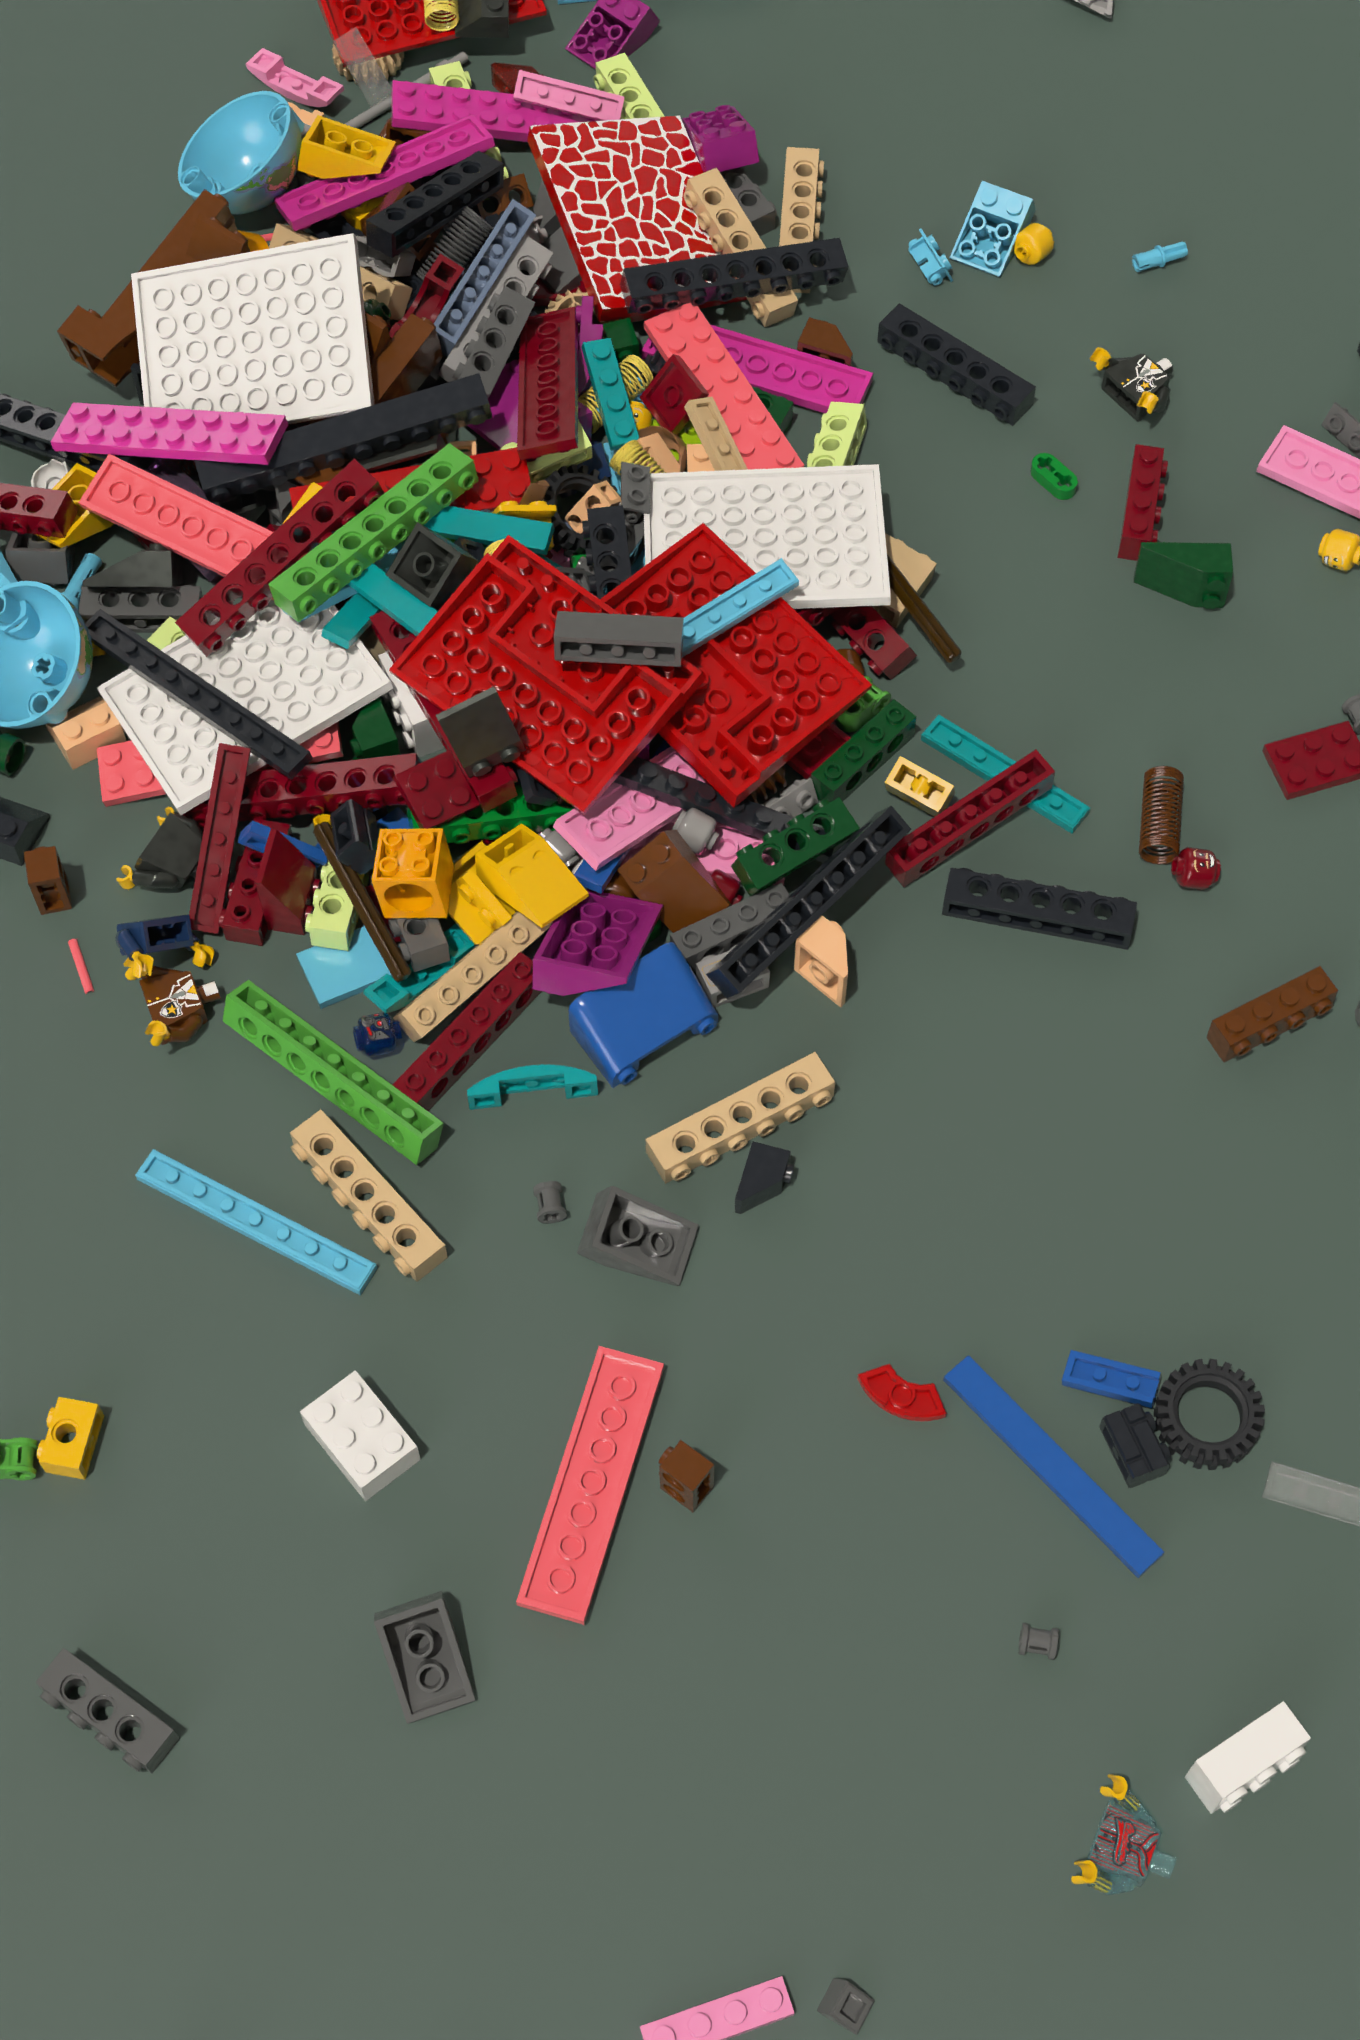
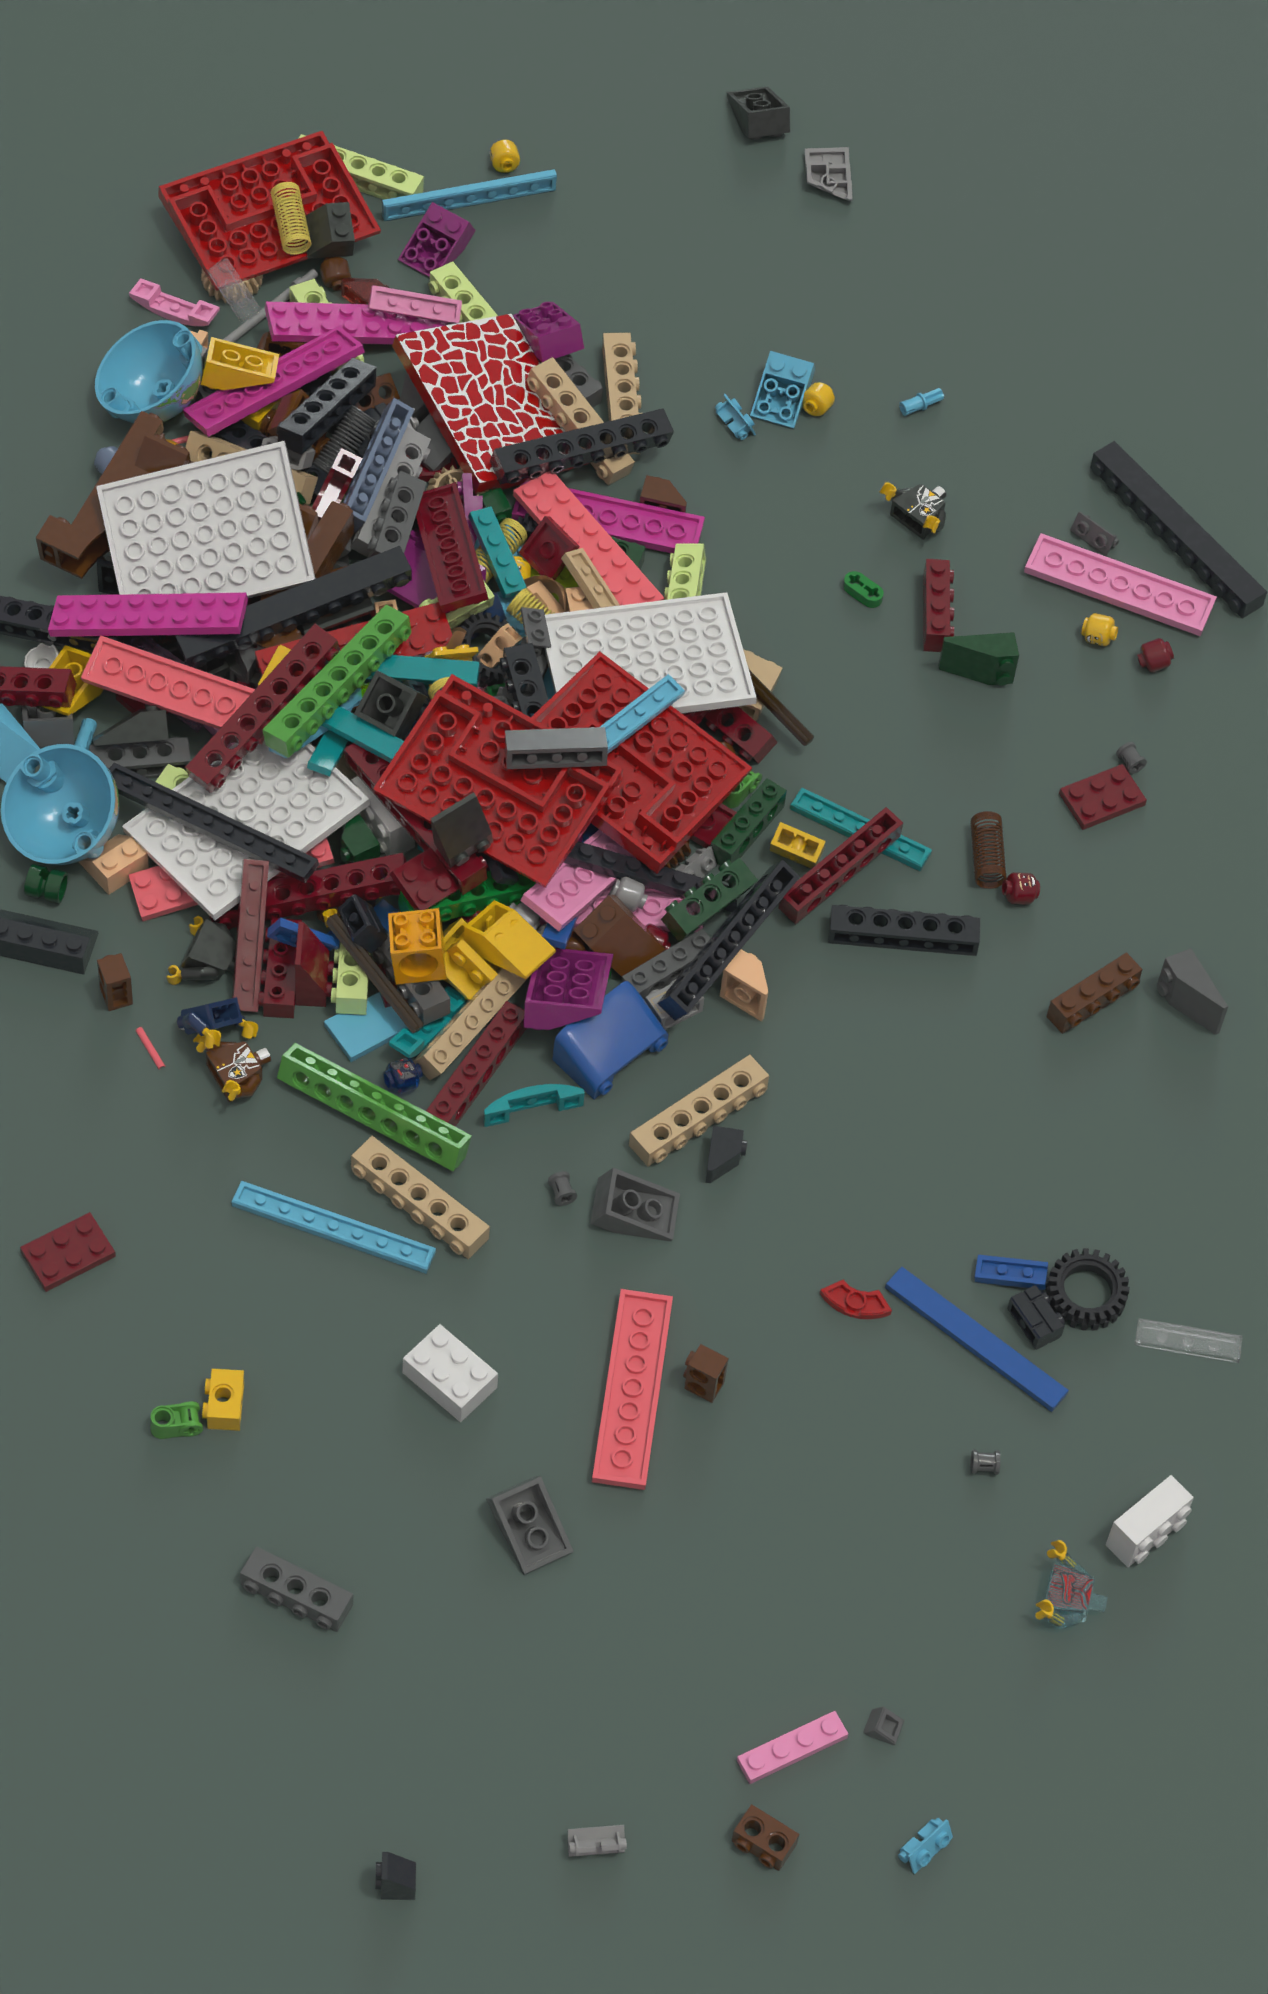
camera: 15 degrees left, 5 degrees down
(484, 53) = (333, 271): none -> reddish brown head
(956, 364) = (770, 504): black brick -> none

